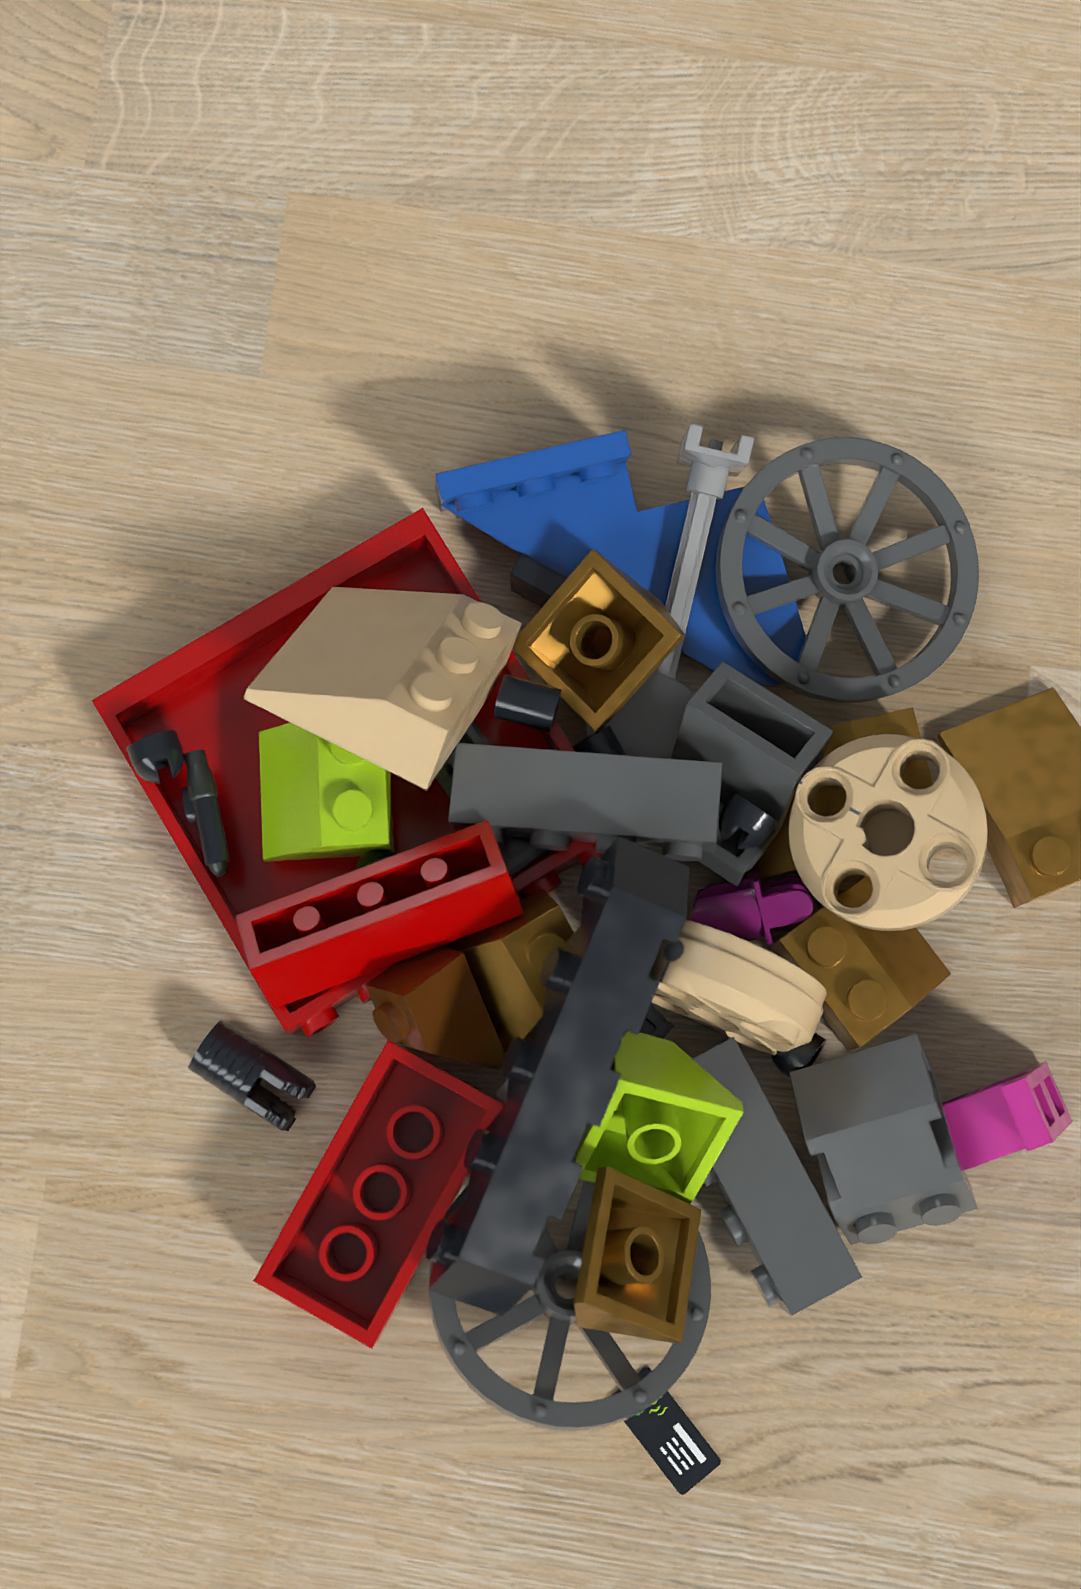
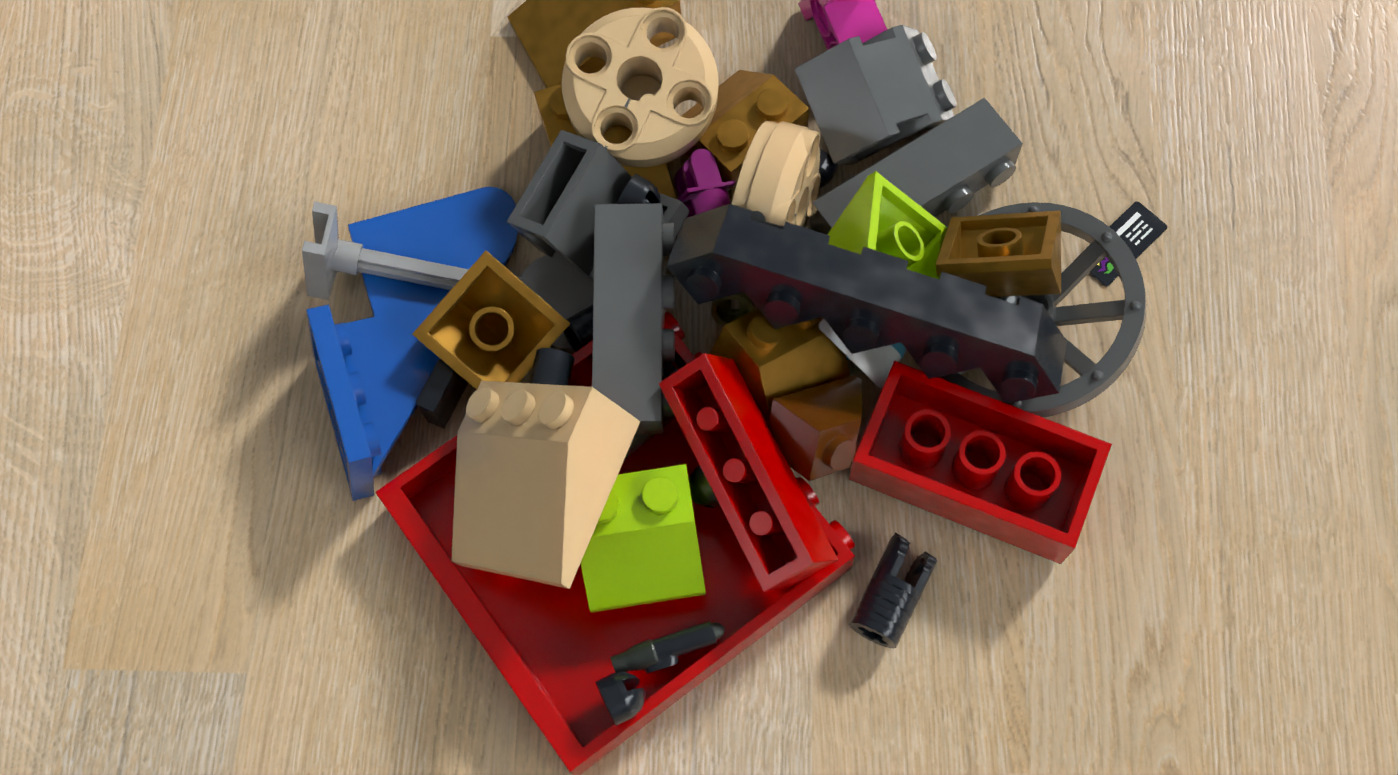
camera: 90 degrees left, 10 degrees down
(860, 568) = (417, 153): dark grey wheel -> none

